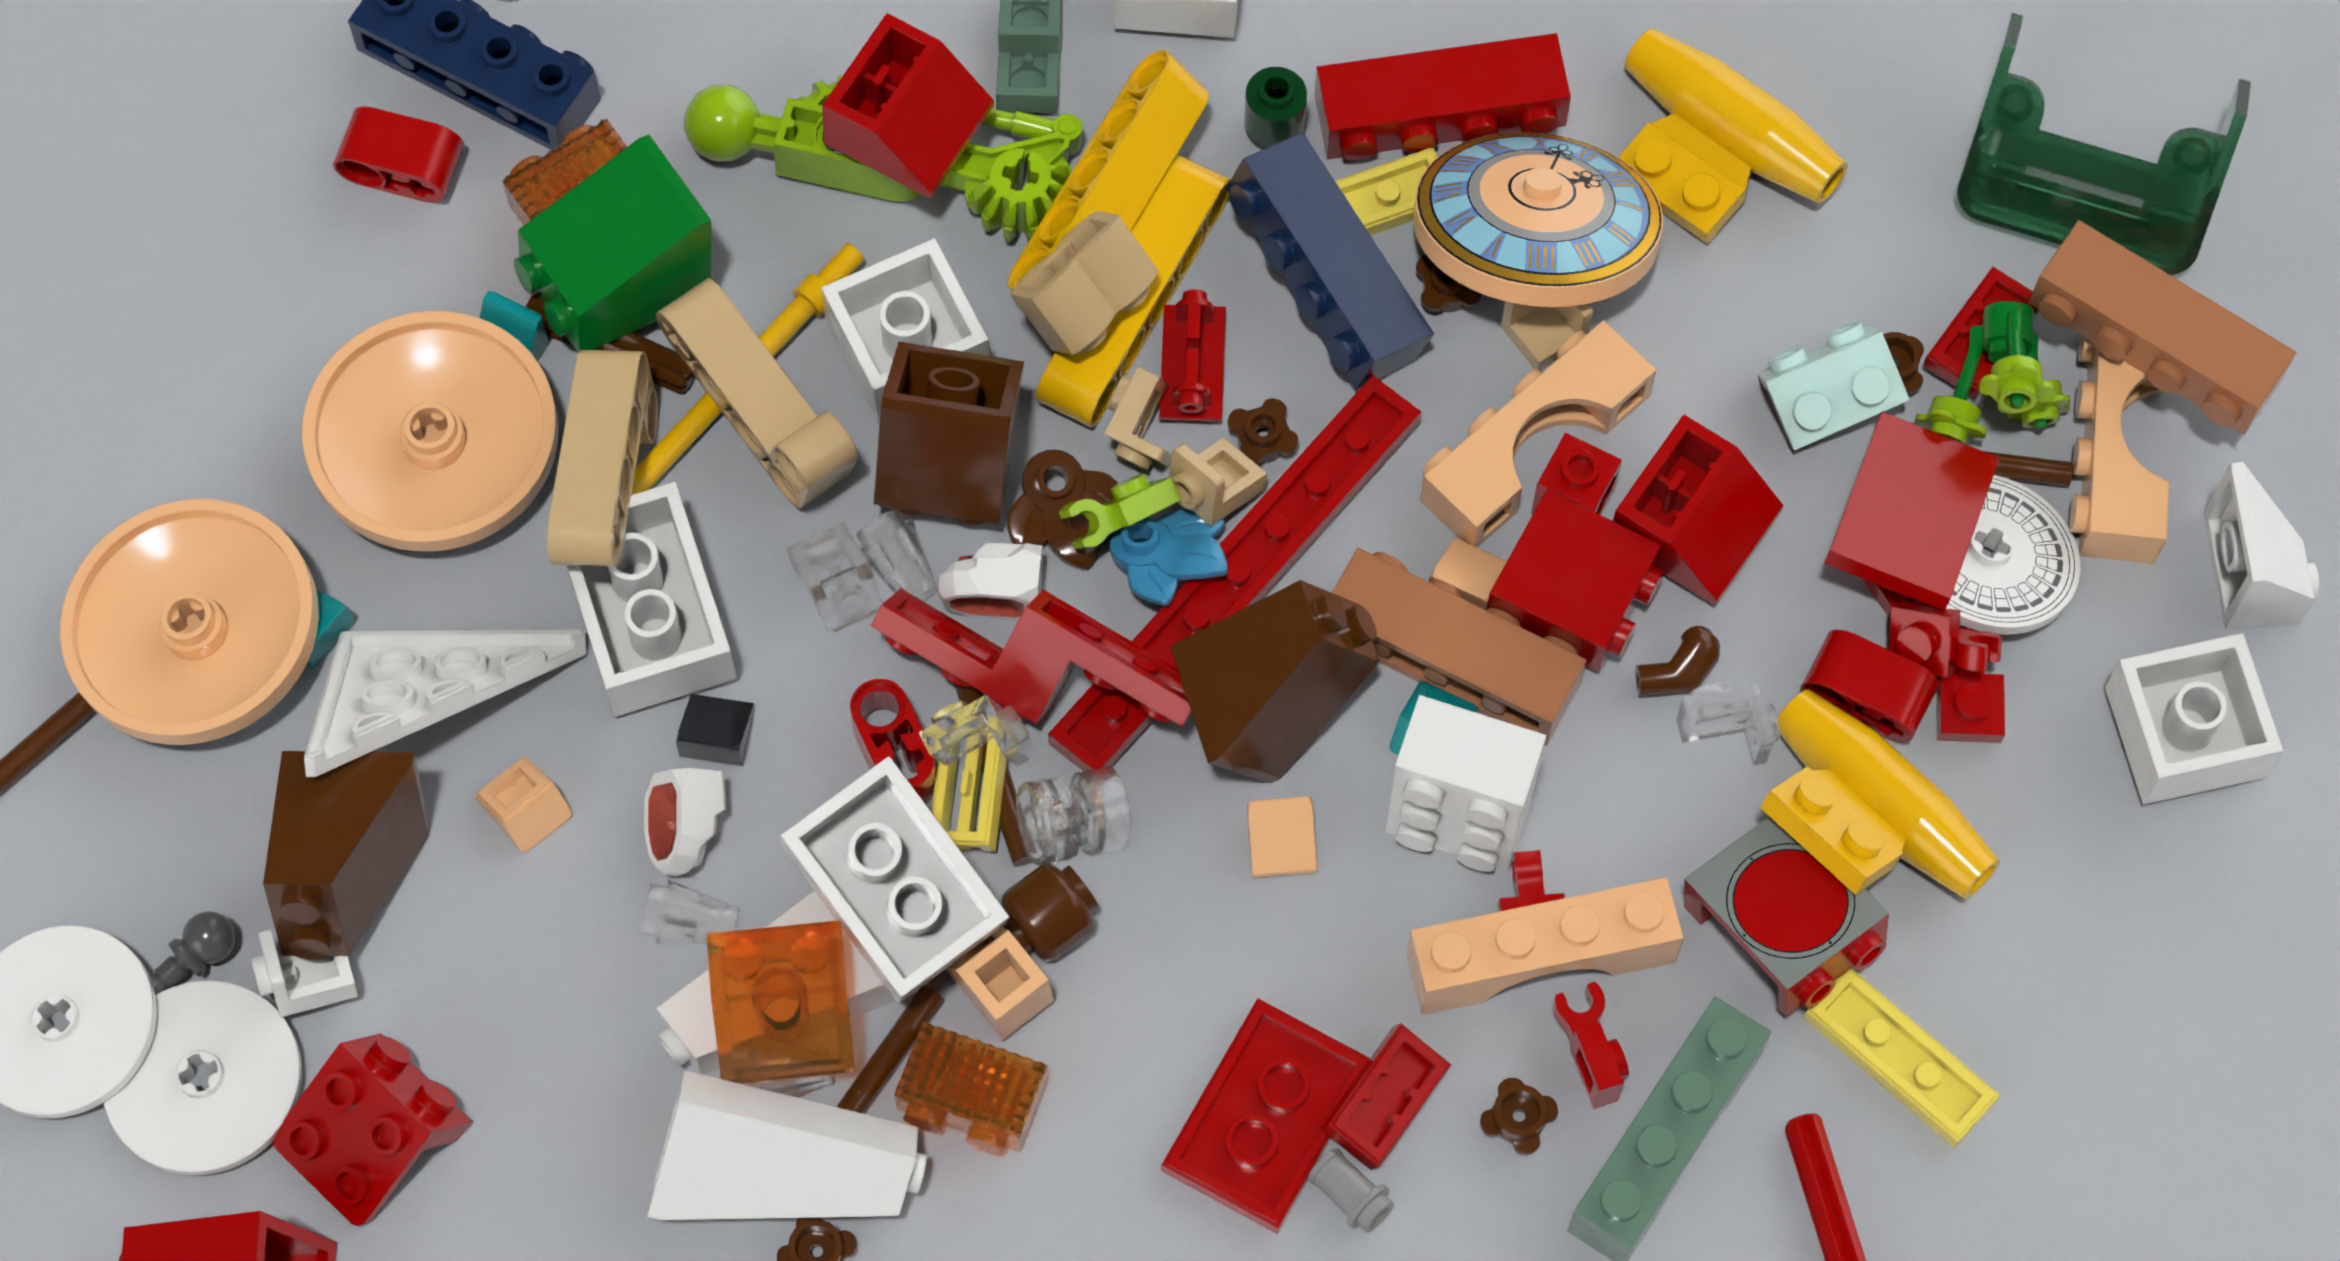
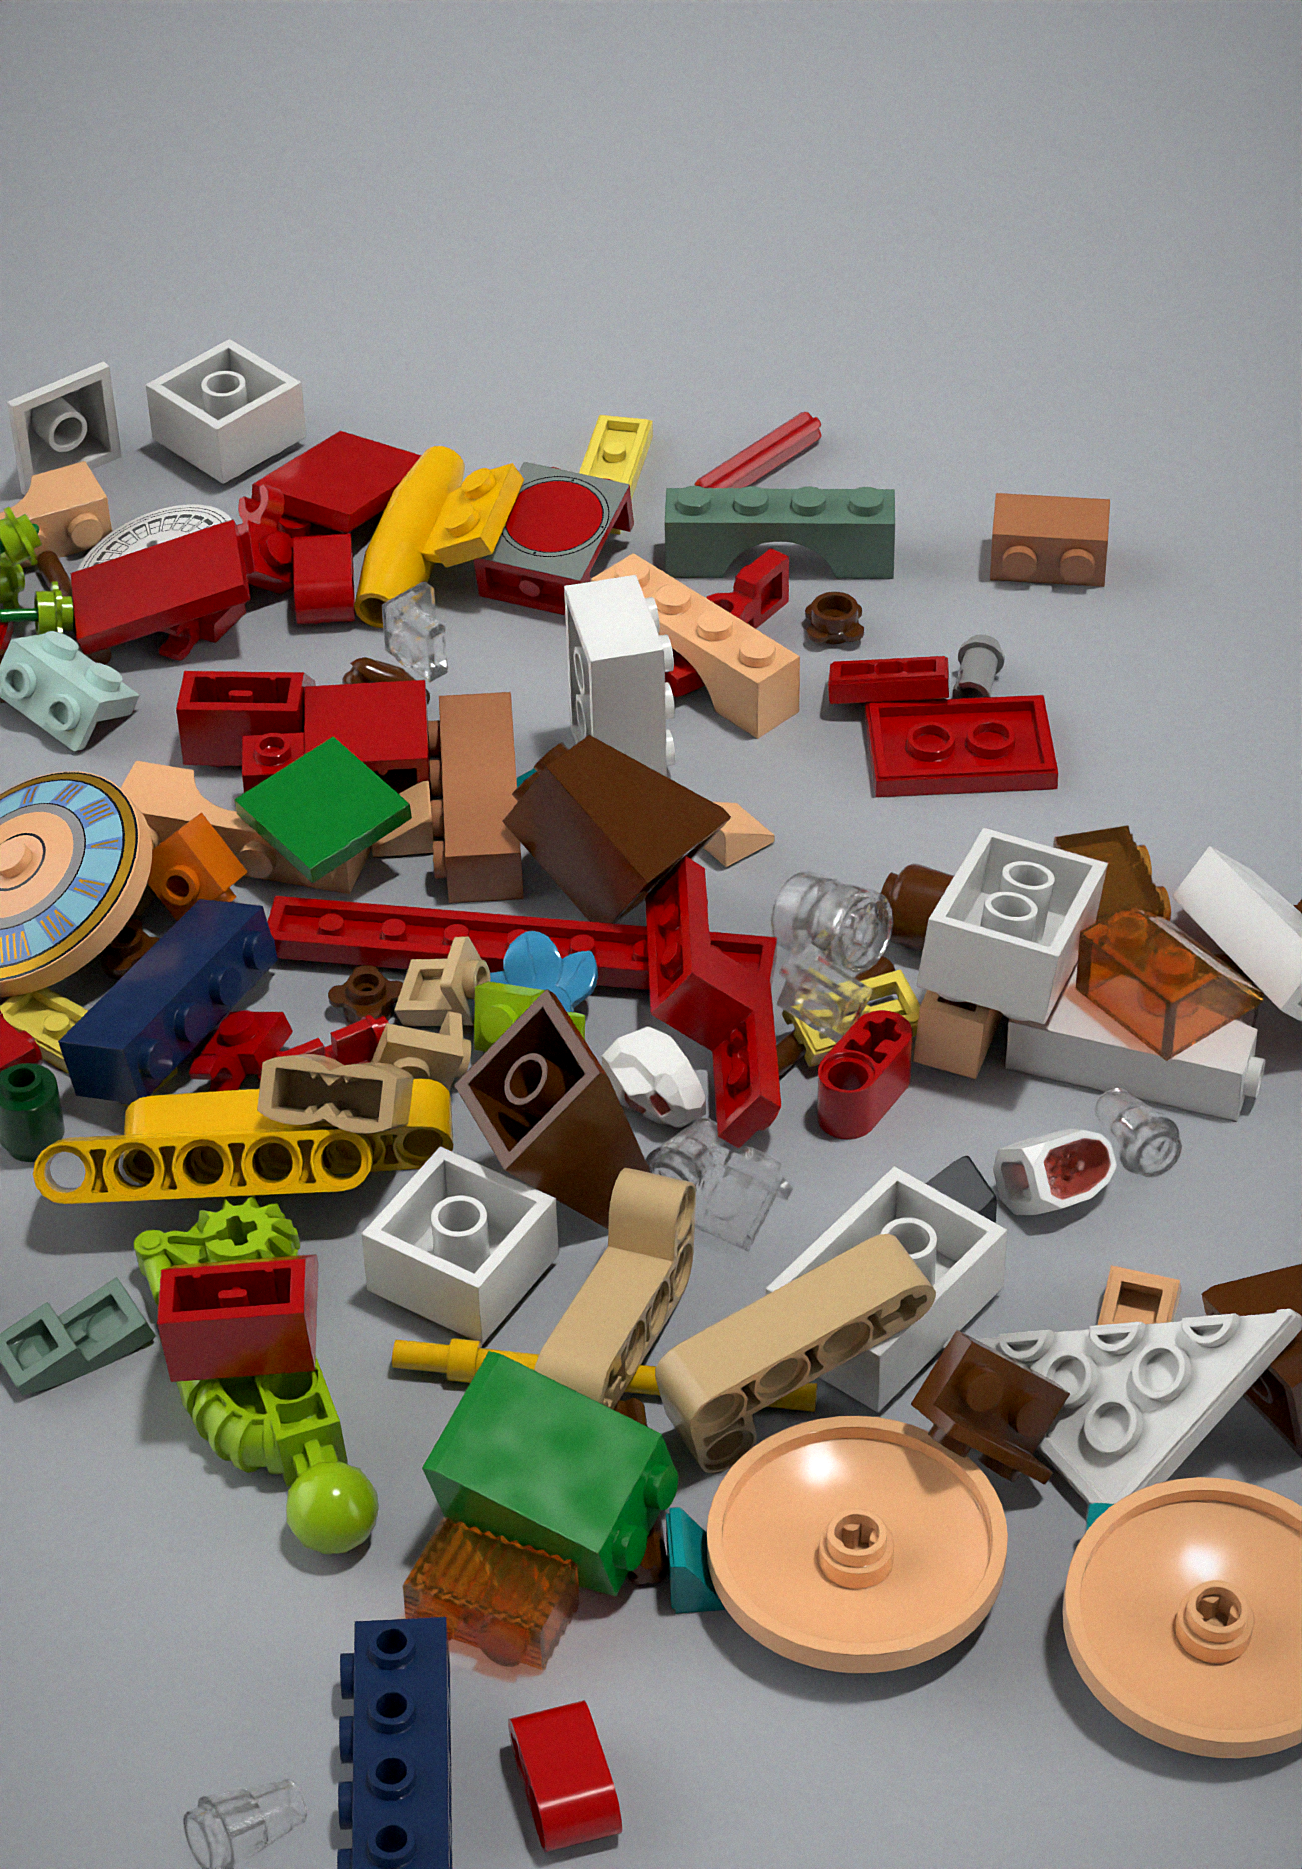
camera: 120 degrees left, 25 degrees down
(449, 568) = (990, 1406): none -> reddish brown bracket
(1257, 308) = (240, 1048): none -> red plate
(1470, 468) = (323, 809): none -> green tile
(1480, 347) = (193, 867): none -> orange brick
(2017, 778) = (340, 481): none -> red tile

